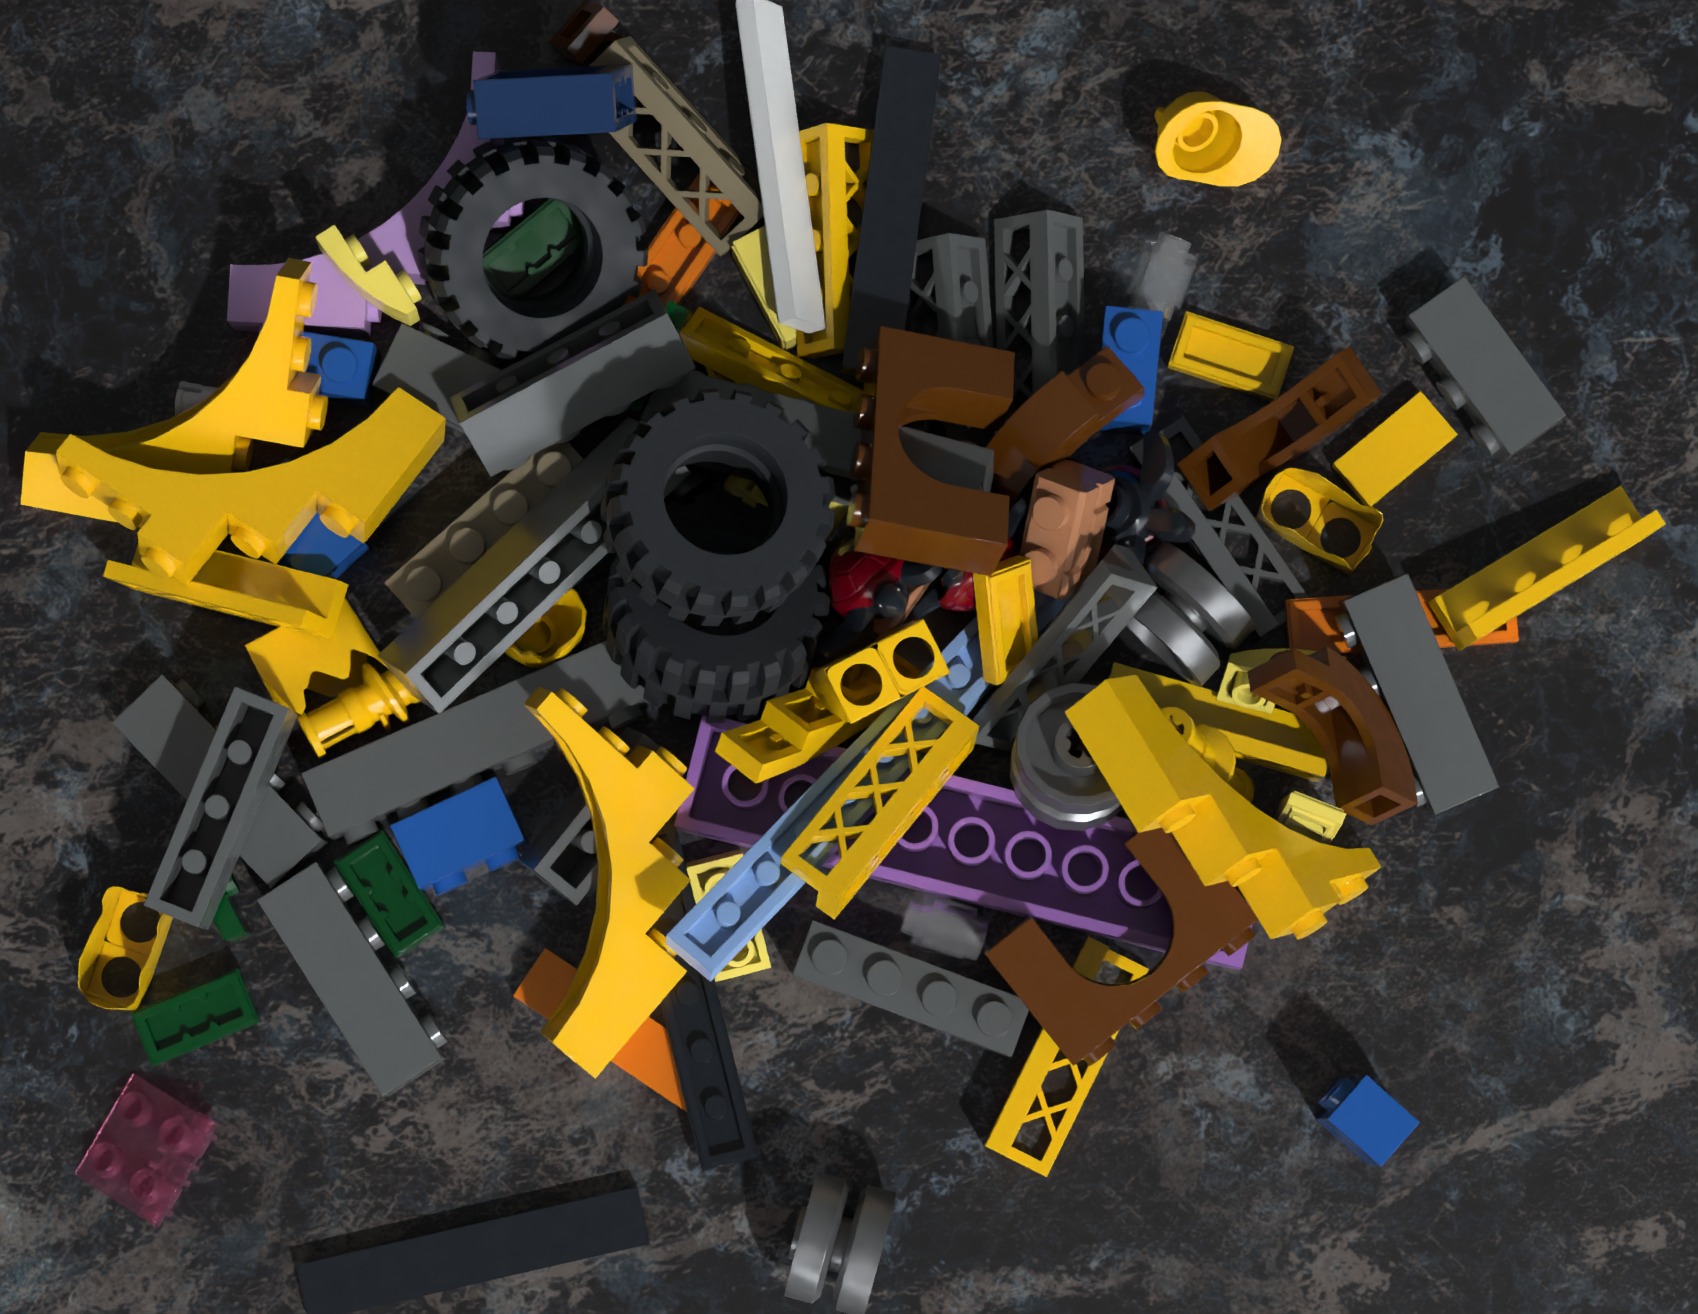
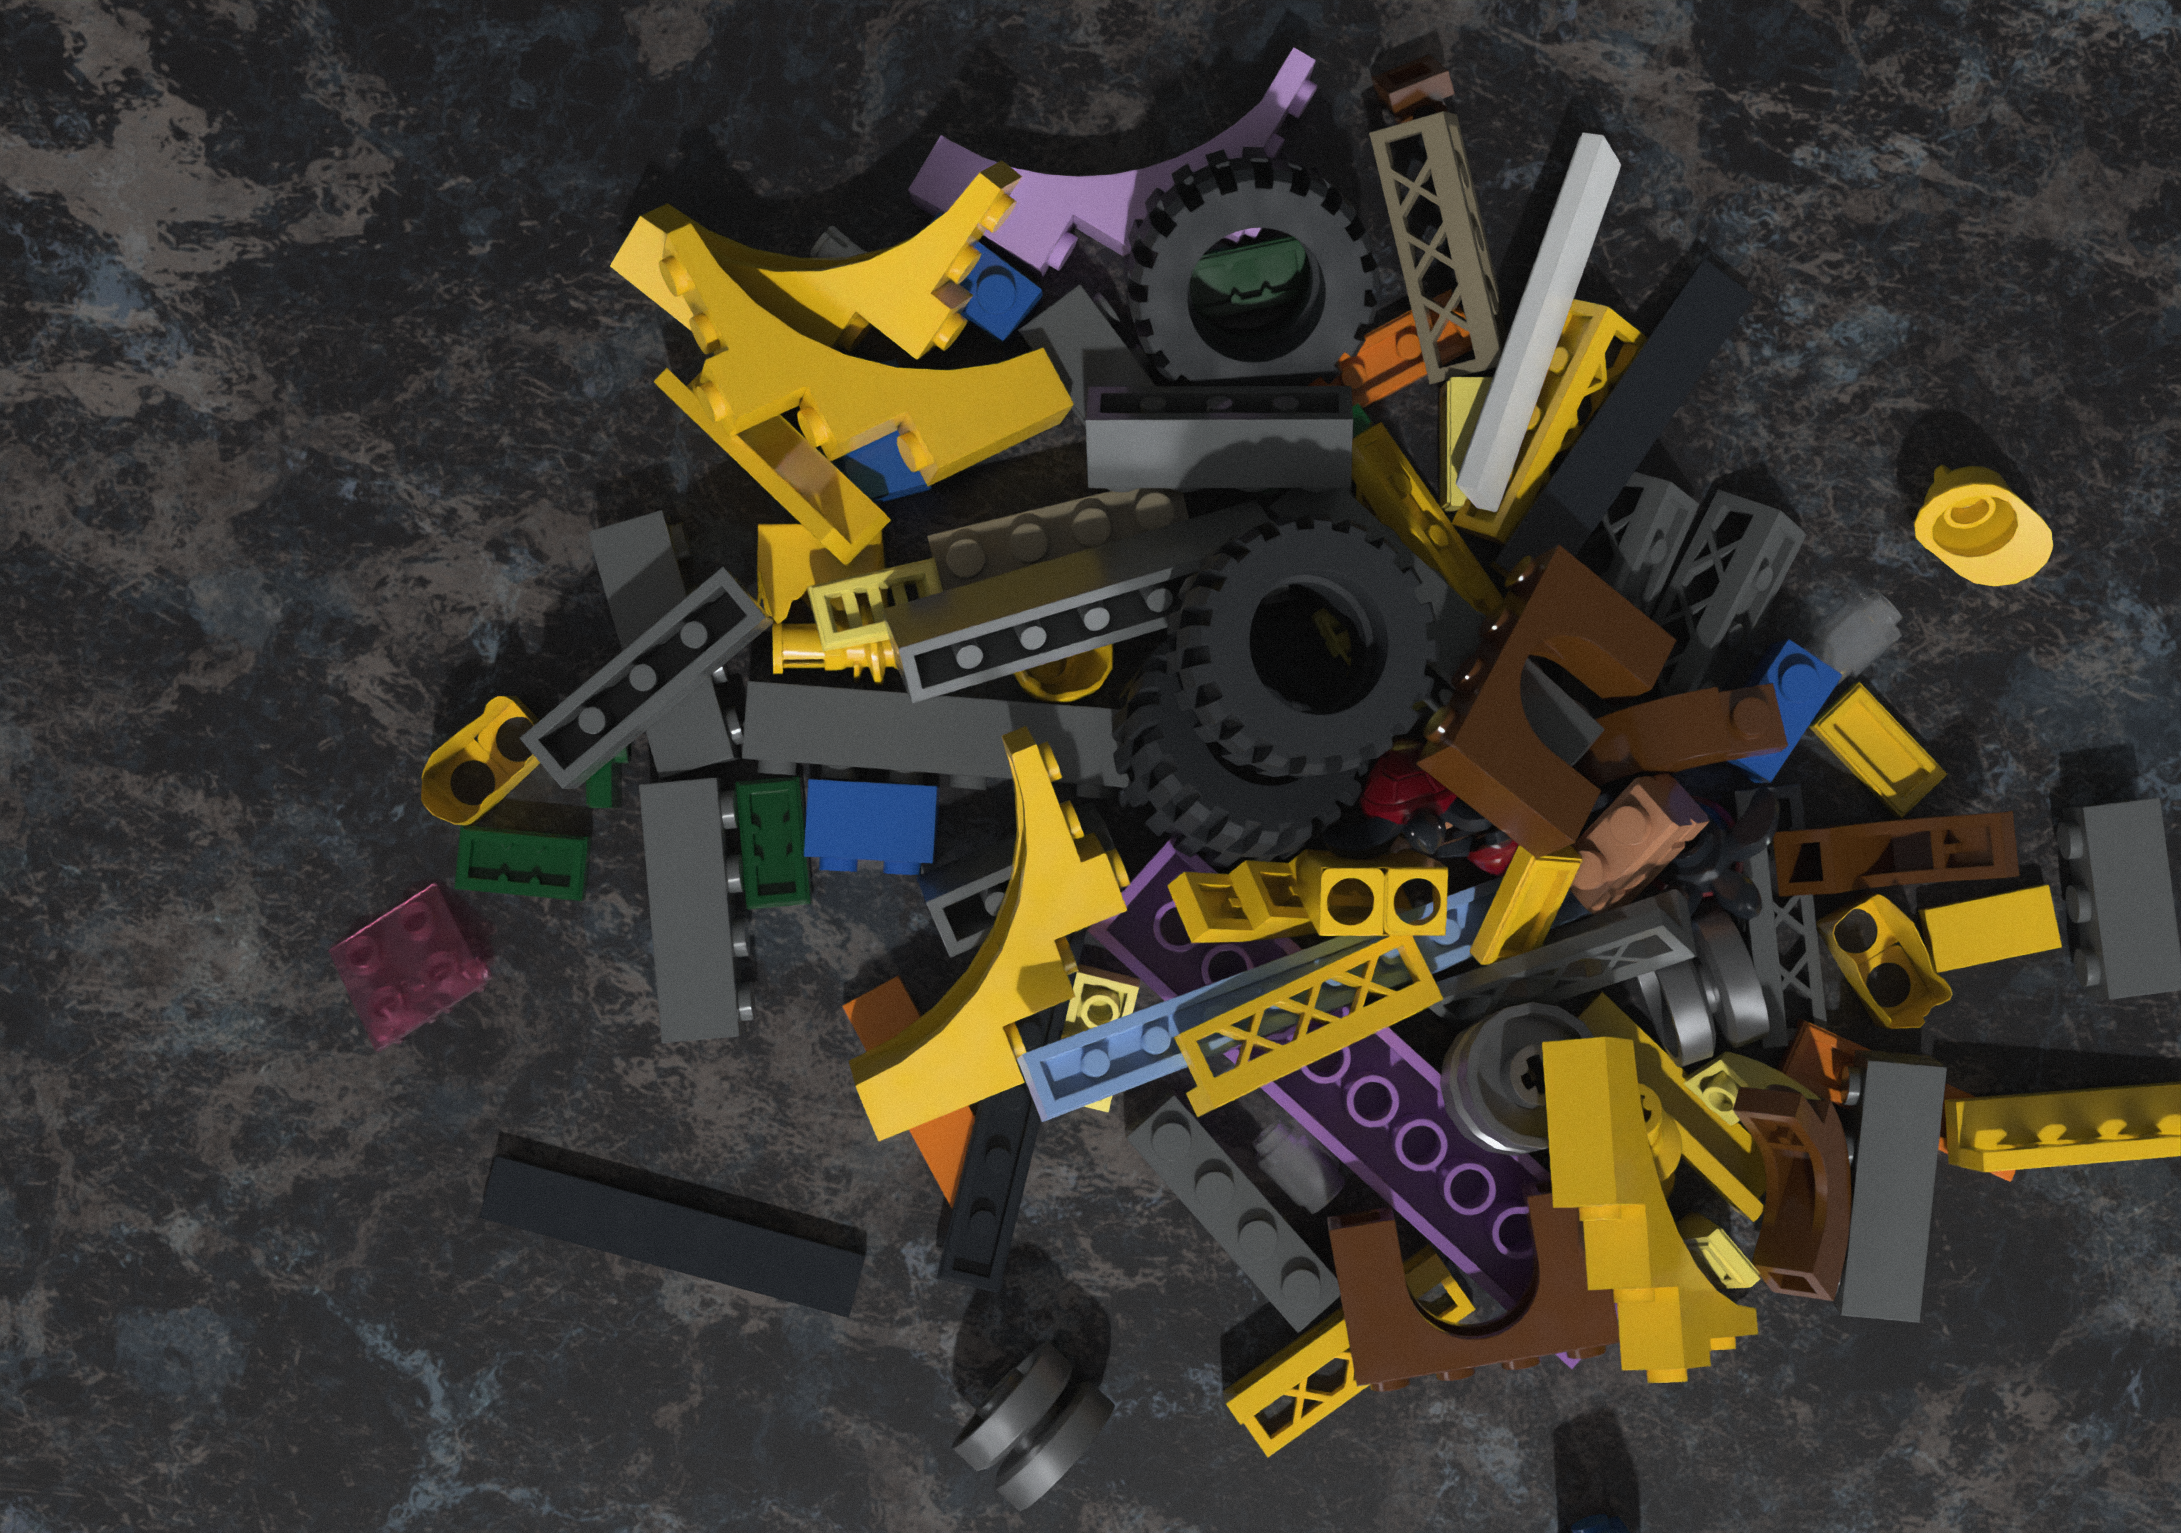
camera: 25 degrees right, 5 degrees up
(379, 286) = (1076, 235): light yellow slope -> none
(394, 615) = (921, 573): none -> light yellow slope
(552, 101) = (1348, 140): dark blue window -> none

